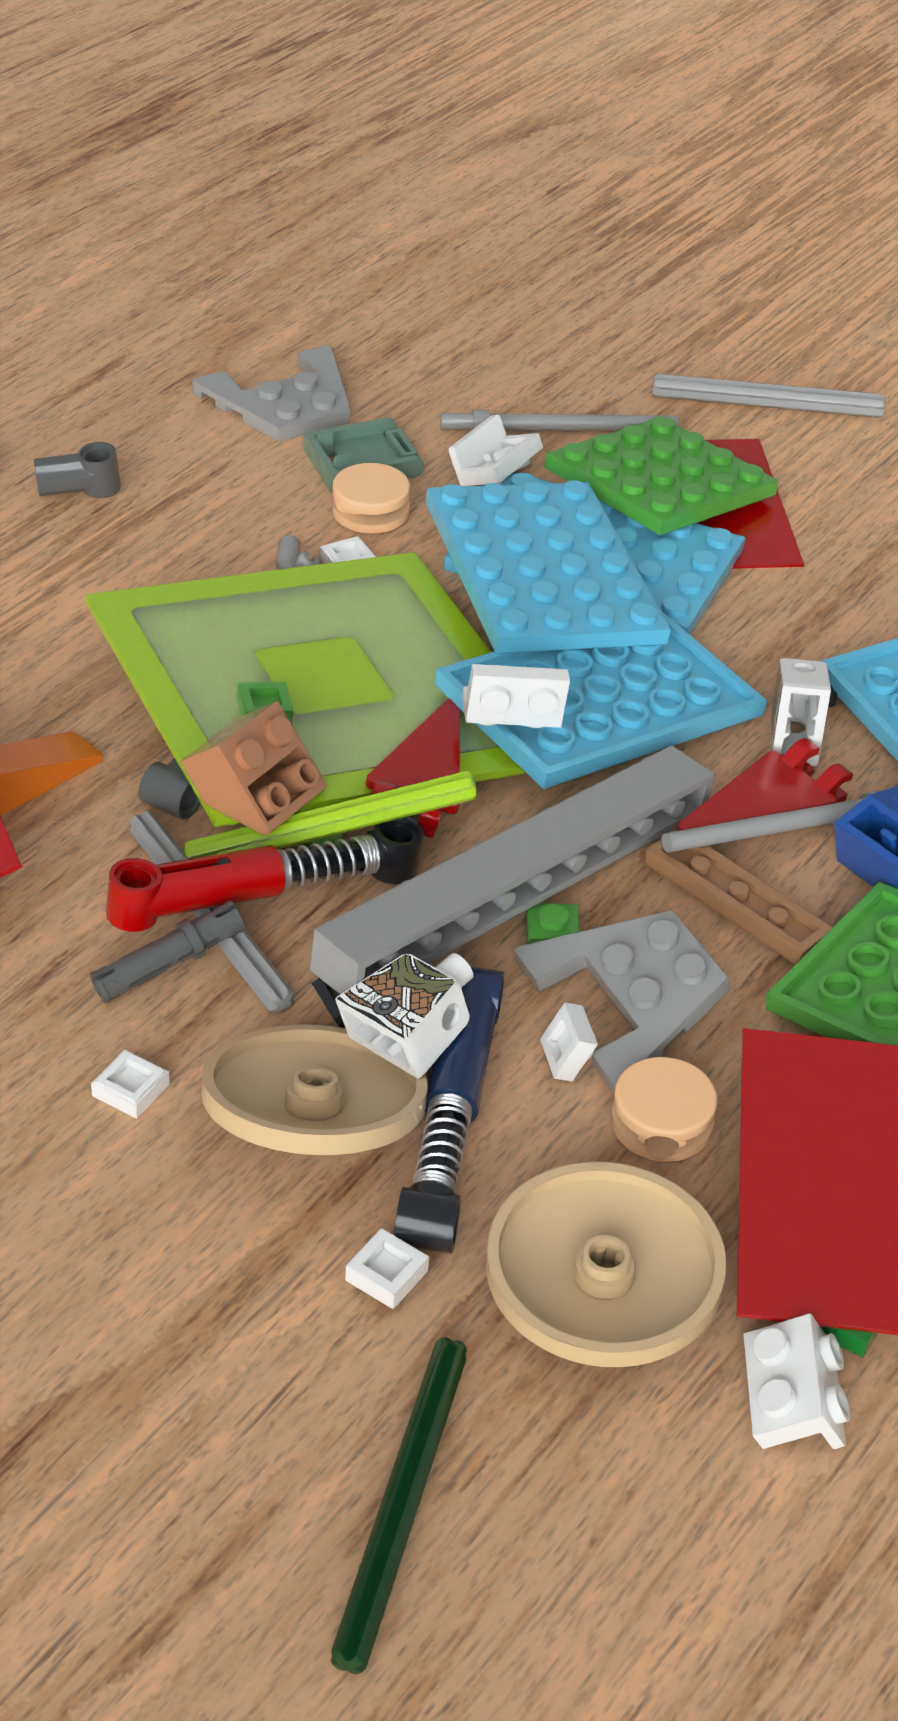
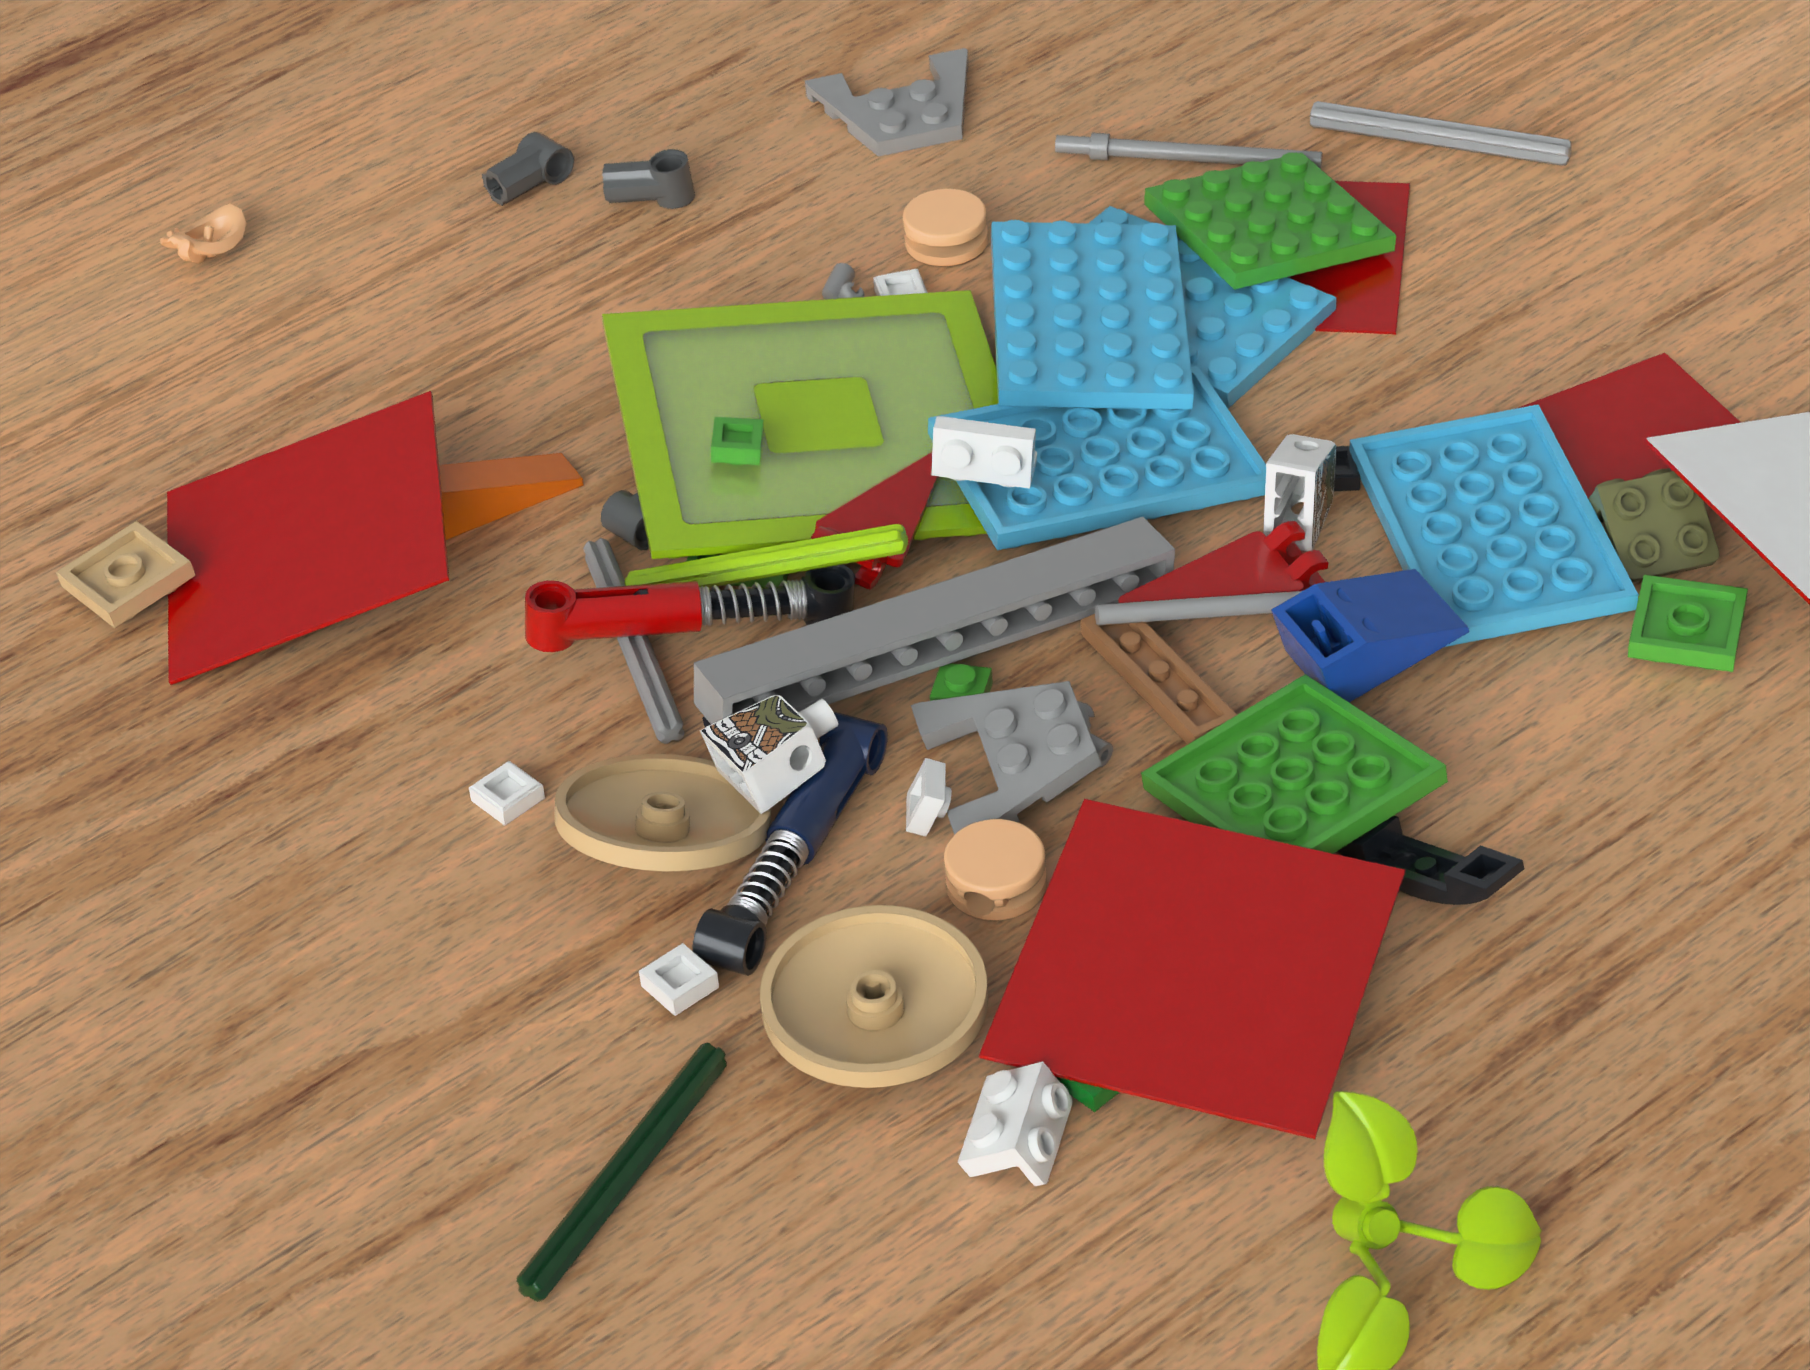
camera: 20 degrees right, 0 degrees up
(158, 956) = (582, 671): dark grey pin -> none
(255, 770) = (701, 506): nougat slope -> none
(361, 443) = (968, 165): sand green container -> none
(491, 455) = (1092, 184): white bracket -> none

